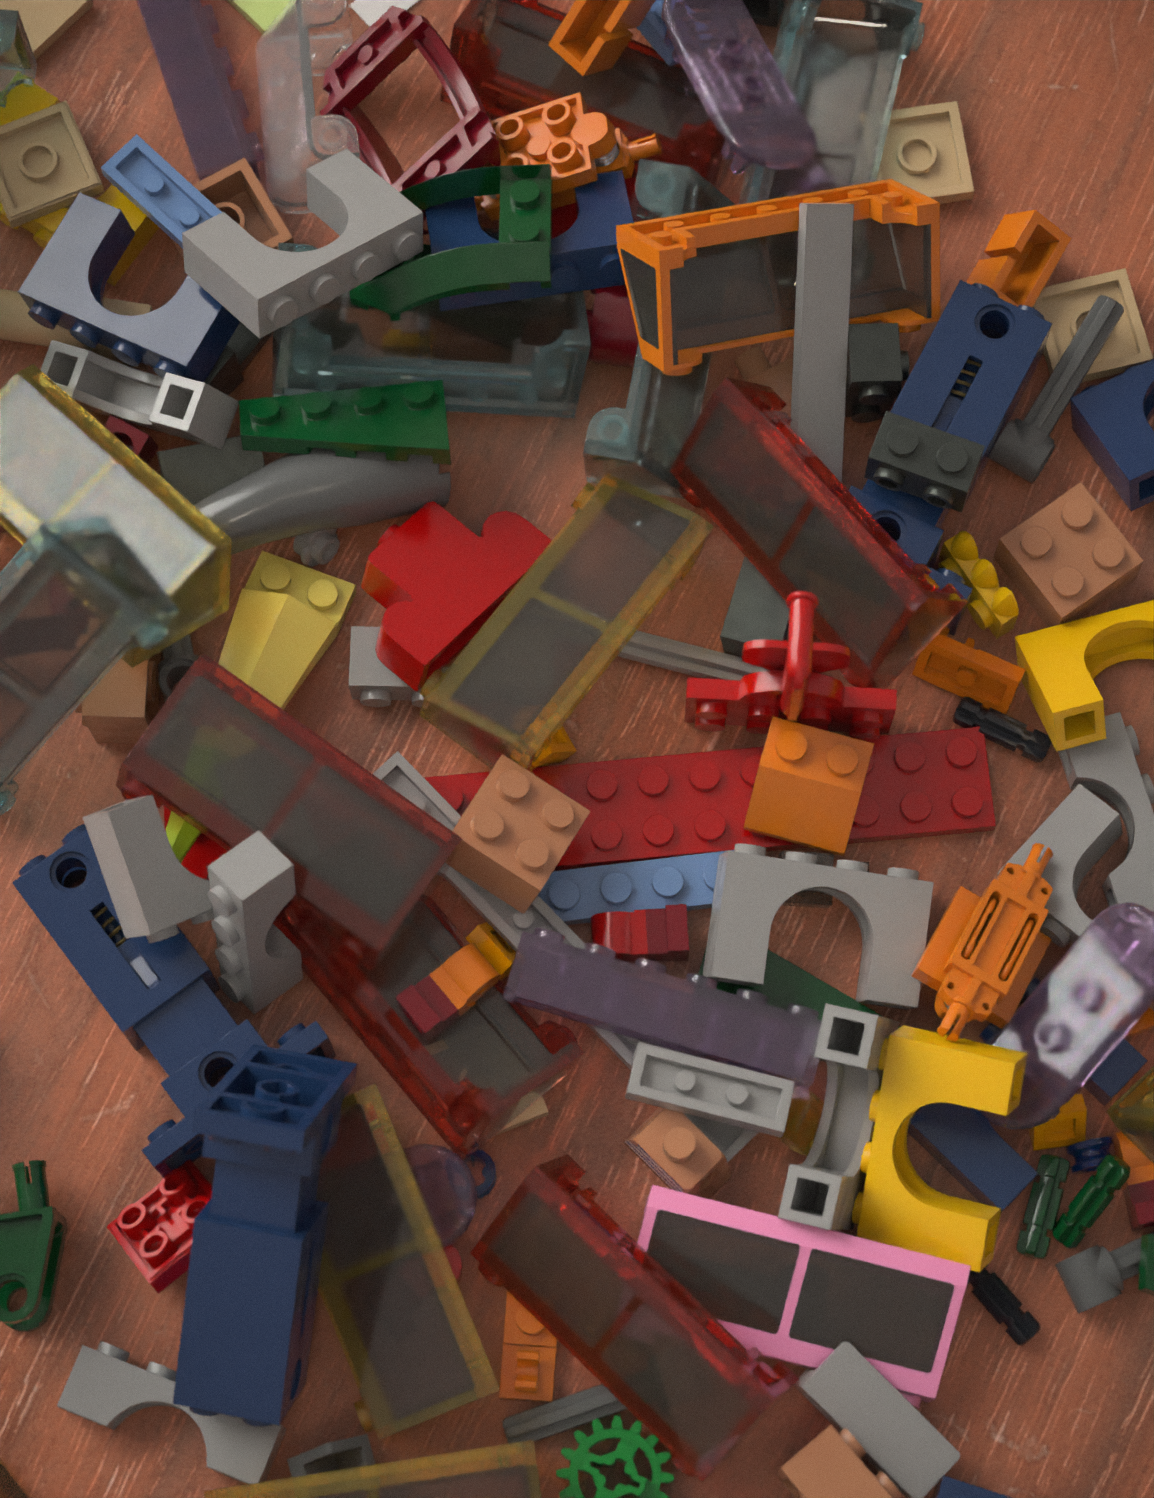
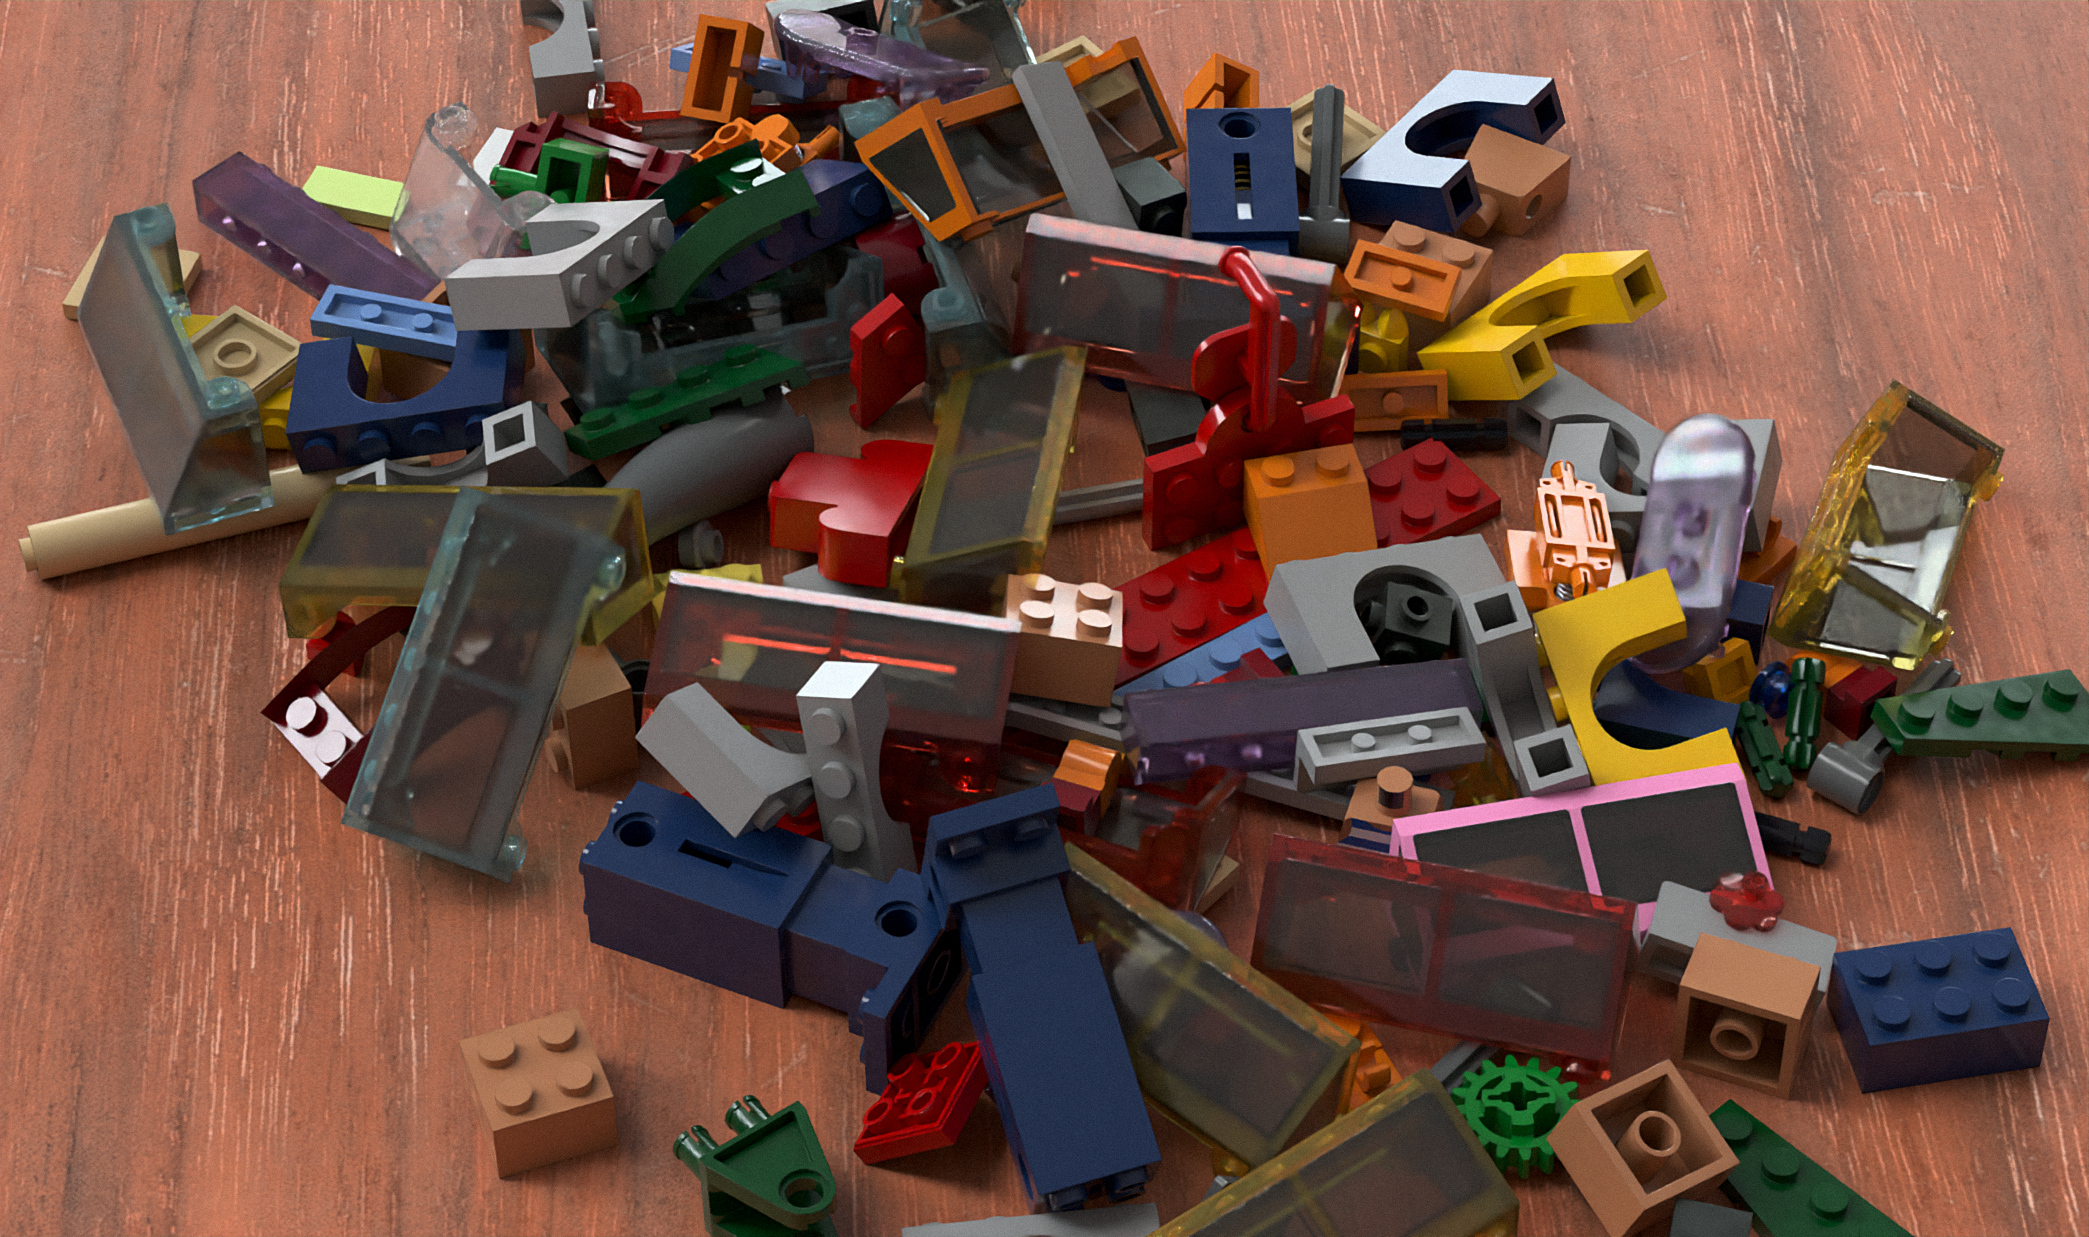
camera: 30 degrees left, 30 degrees down
(392, 103) = (565, 173): none -> green brick
(555, 430) = (885, 359): none -> red wing
(836, 947) = (1408, 624): none -> pearl dark grey brick
(891, 1389) = (1747, 901): none -> clear red plant
(923, 462) = (1255, 212): pearl dark grey brick -> none
(1024, 579) = (1402, 280): none -> orange plate

